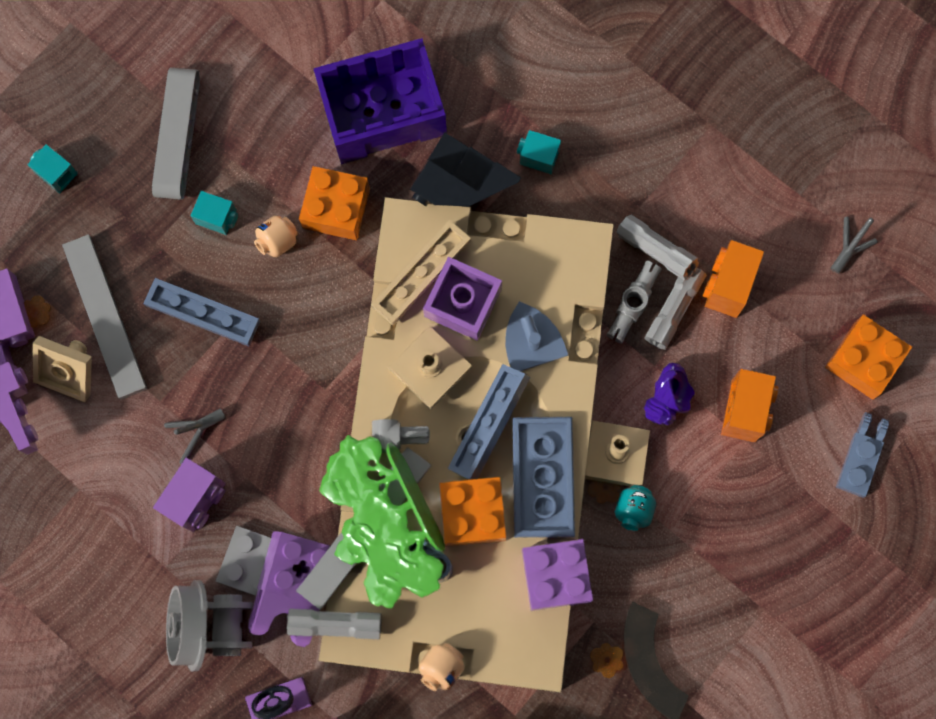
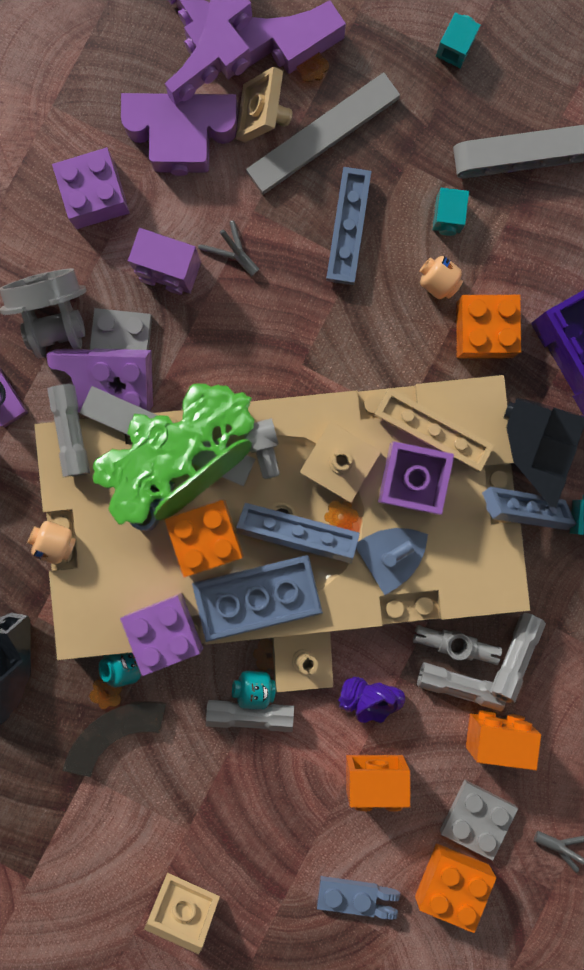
camera: 75 degrees right, 10 degrees up
(64, 453) = (181, 131): none -> medium lavender brick
(95, 555) = (90, 188): none -> medium lavender brick
(474, 382) = (336, 508): none -> clear orange plant
(516, 204) = (527, 509): none -> sand blue plate
(584, 635) = (119, 669): none -> teal head
(656, 534) = (229, 714): none -> light grey axle
(808, 321) = (478, 820): none -> light grey plate
(843, 628) = (182, 913): none -> tan tile

